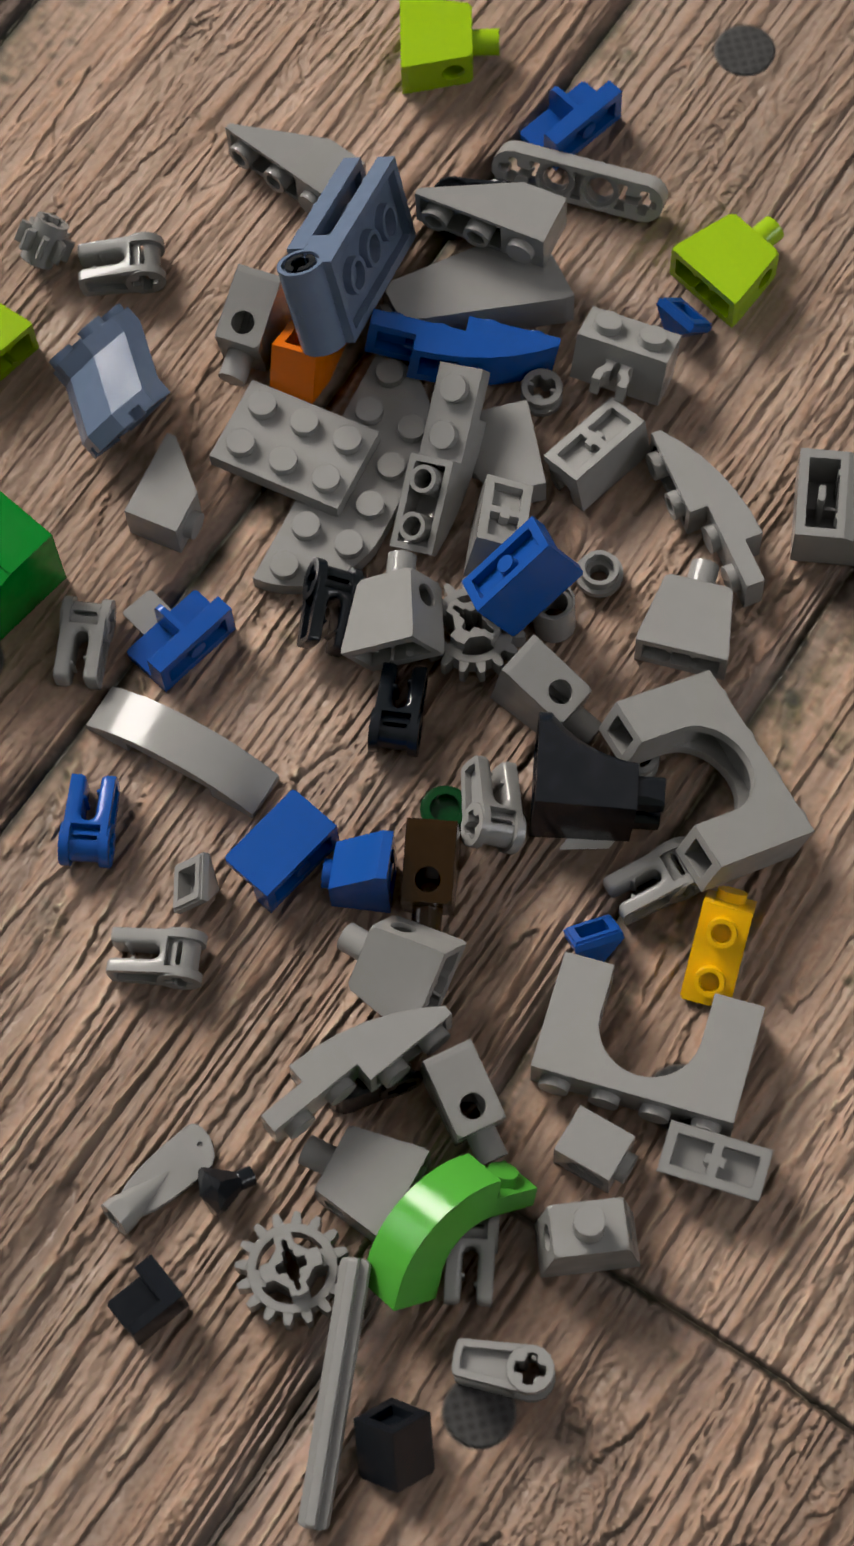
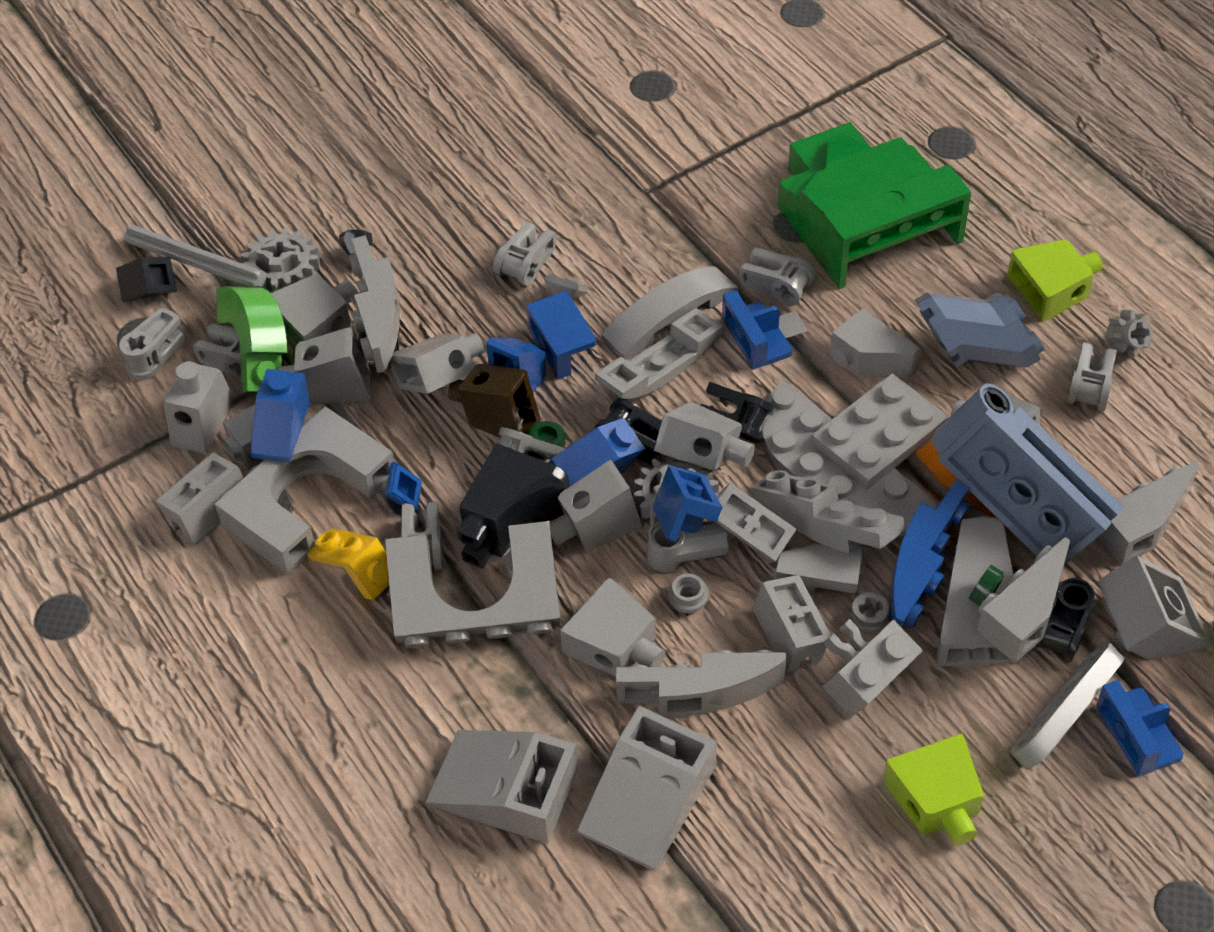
camera: 110 degrees right, 15 degrees down
(93, 838) = (639, 245): blue piece -> none
(147, 1301) = (309, 198): black panel -> none
(161, 1177) = (382, 222): light grey piece -> none
(276, 726) = (664, 360): none -> light grey slope
(432, 135) = (1152, 610): none -> light grey slope
(471, 716) = (607, 442): none -> blue slope
(495, 261) = (987, 584): none -> dark green tile
(587, 1093) = (279, 415): none -> blue slope
(681, 318) = (900, 734): blue slope -> none

